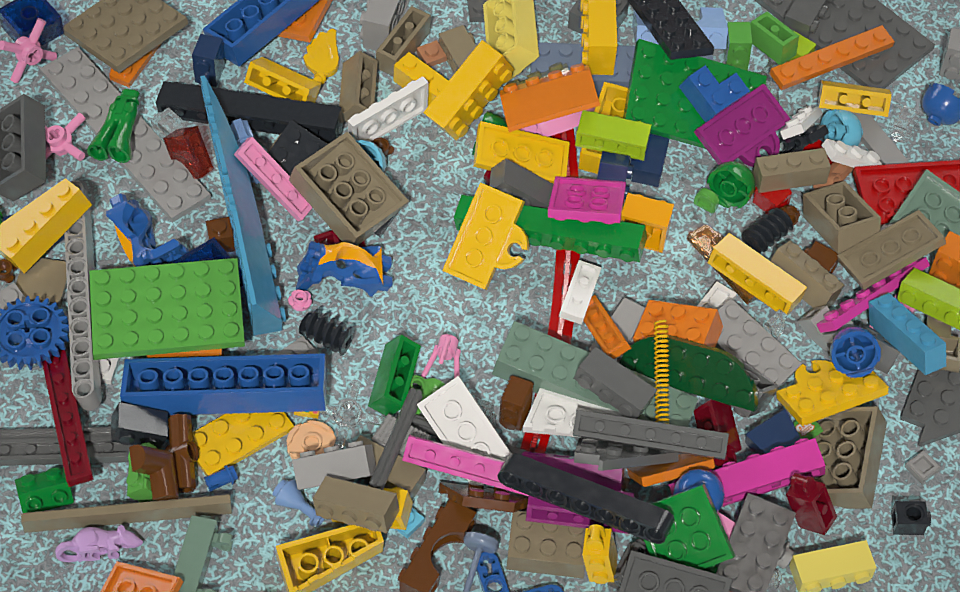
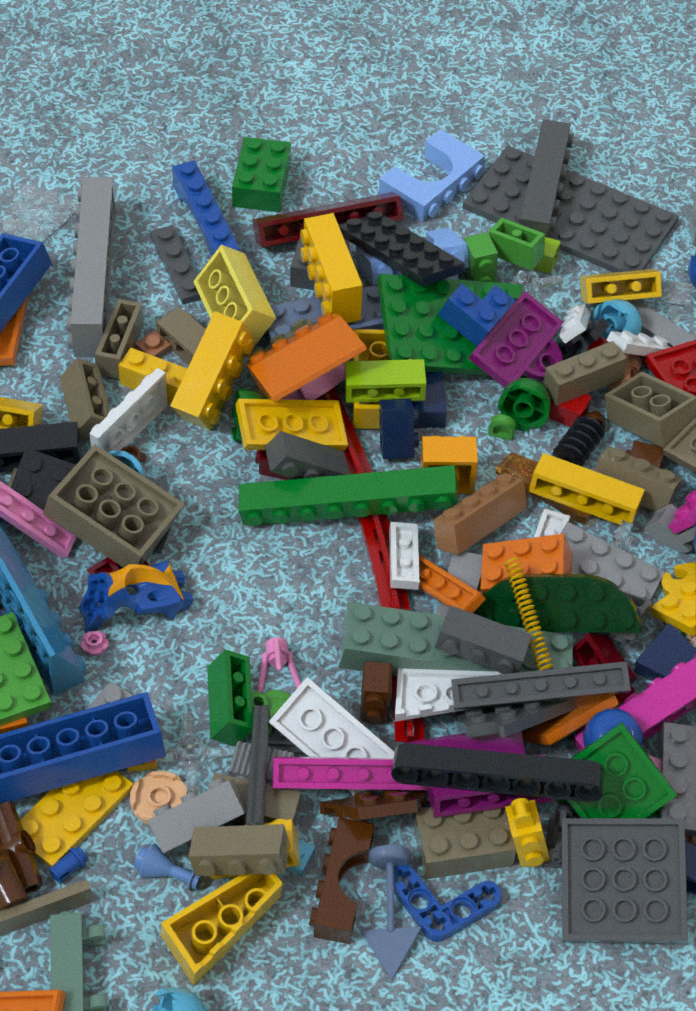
camera: 15 degrees left, 5 degrees down
(323, 56) = (33, 376): yellow animal -> none
(326, 332) = (137, 669): black piece -> none
(487, 237) = (284, 522): yellow plate -> none
(587, 200) = (381, 454): dark pink plate -> none
(657, 272) = (480, 514): none -> medium nougat brick
(831, 57) = (580, 251): orange plate -> none

